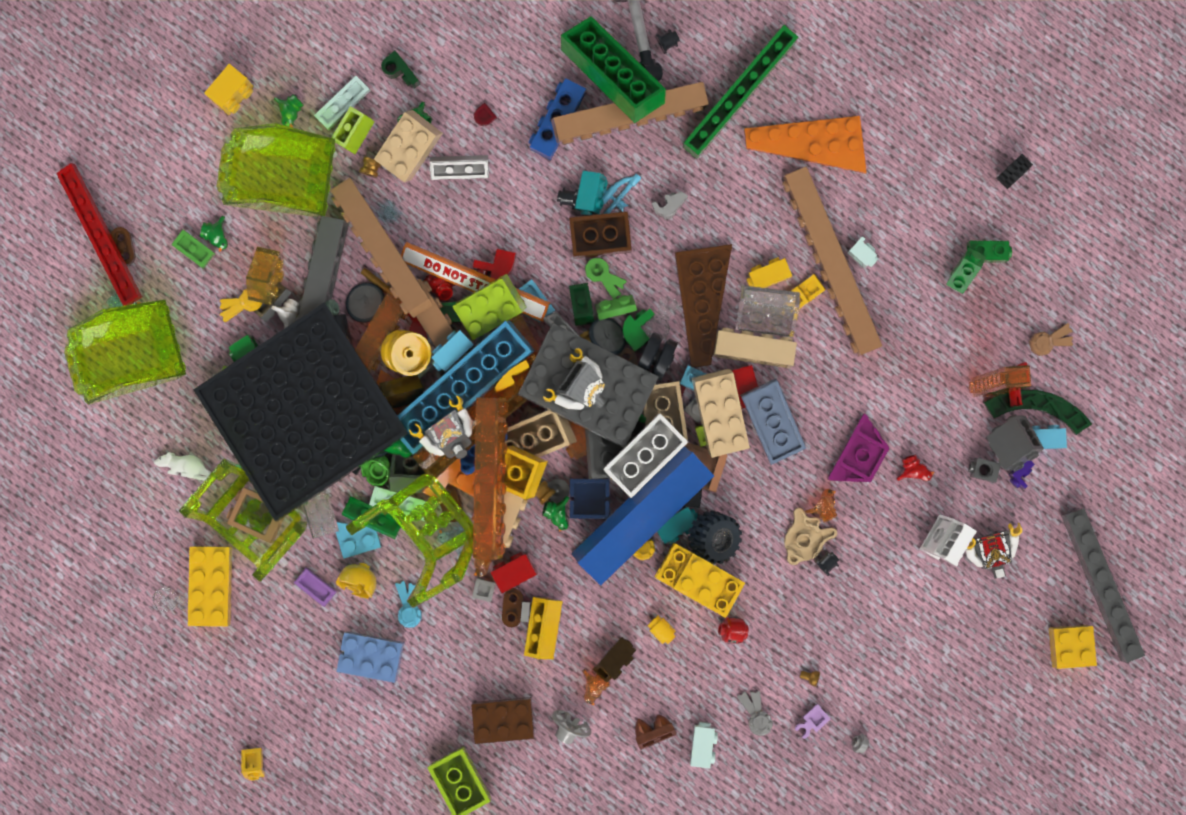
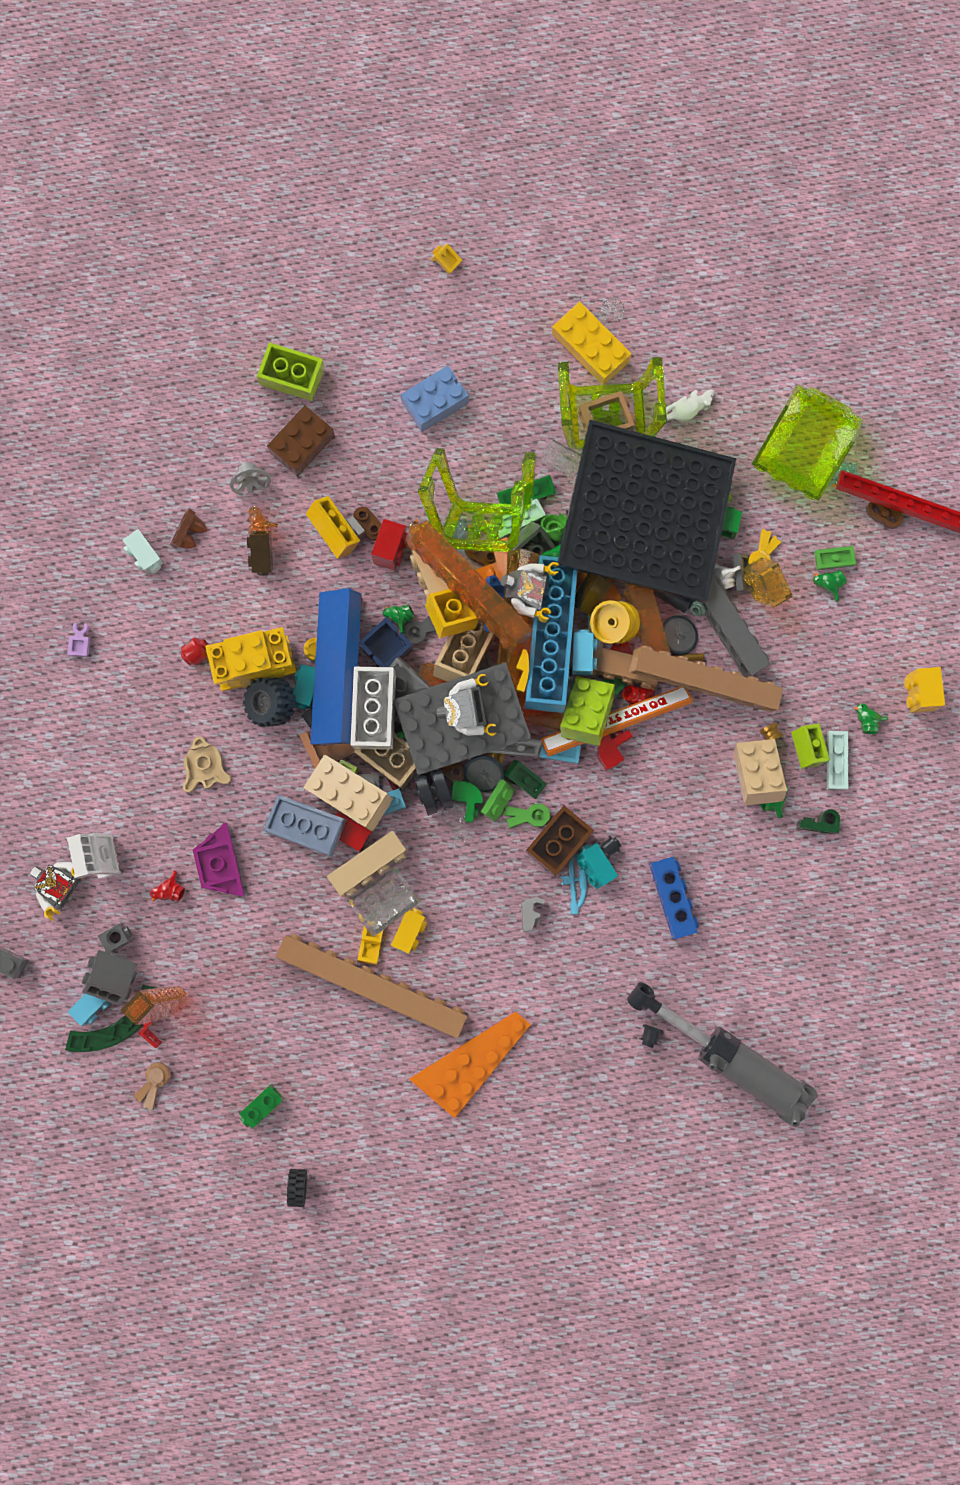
camera: 130 degrees right, 5 degrees down
(276, 170) = (832, 664): clear neon green windscreen -> none
(315, 587) = (519, 411): medium lavender tile -> none
(358, 579) = (494, 441): yellow cylinder -> none
(360, 542) = (514, 469): medium azure wing -> none
(389, 212) = (725, 715): clear light blue tile -> none
(407, 615) = (453, 462): medium azure piece -> none
(459, 167) = (709, 795): light grey slope -> none
(483, 590) = (400, 515): light grey plate -> none
(484, 116) = (728, 849): dark red tile -> none
(544, 492) = (422, 619): pearl gold wheel -> none
(611, 117) = (625, 952): medium nougat brick -> none
(613, 69) = (668, 970): green brick -> none
(661, 630) = (247, 604): yellow brick -> none
(702, 288) = (449, 874): reddish brown wing -> none
(740, 92) = (559, 1049): green brick -> none
(759, 722) = (117, 606): light grey piece -> none
(811, 677) = (107, 672): pearl gold piece -> none
(825, 506) = (210, 801): clear orange animal -> none
(827, 562) = (171, 762): black brick -> none
(860, 743) = (30, 657): light grey plate -> none
(863, 253) = (354, 1014): light aqua brick -> none
(966, 270) = (264, 1073): green brick -> none
(1015, 475) = (85, 953): dark purple bracket -> none

